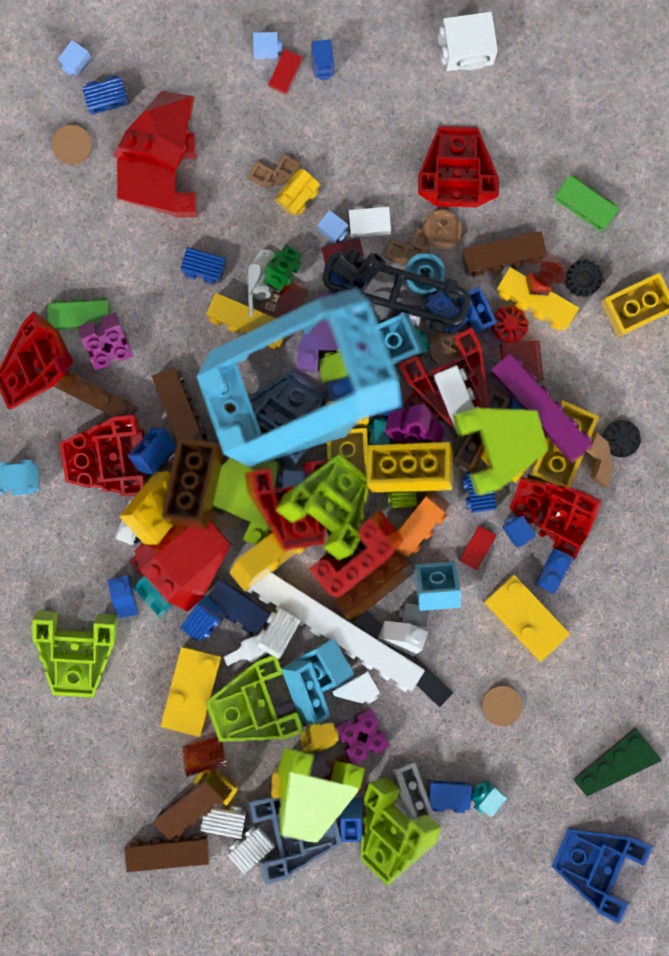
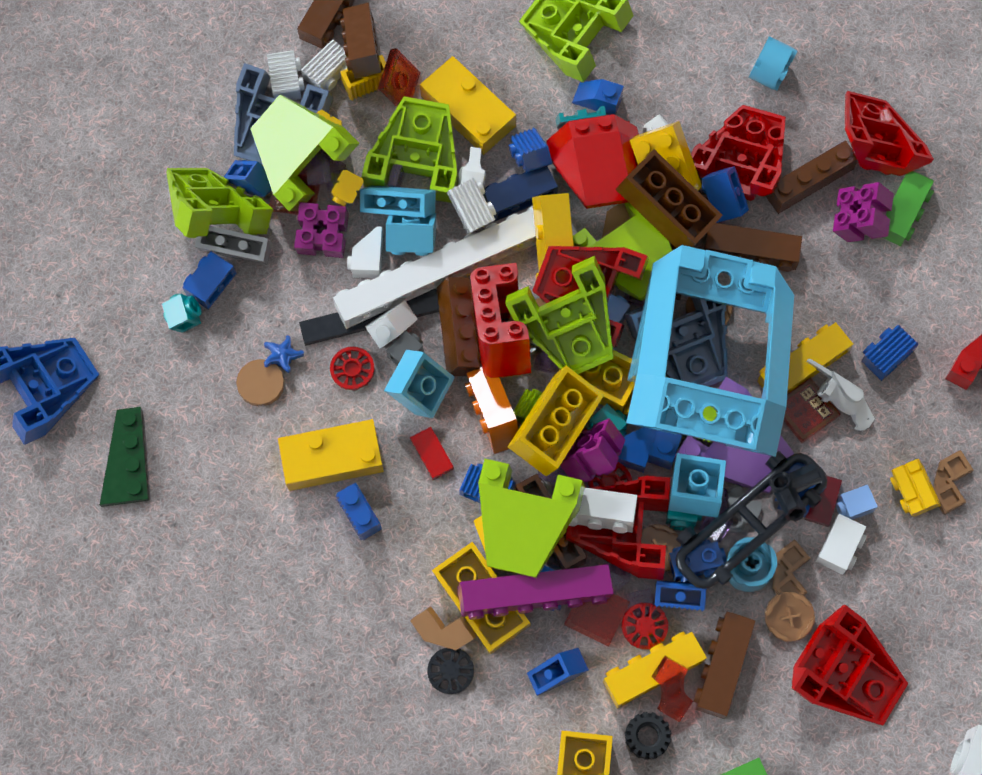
camera: 130 degrees right, 15 degrees down
(285, 263) = (839, 419): green brick -> none
(450, 645) = (352, 368): none -> red wheel
(472, 703) = (282, 354): none -> blue animal
(518, 530) = (423, 497): blue brick -> none
(558, 512) = (411, 554): red wedge -> none
(578, 363) = (557, 671): none -> blue slope

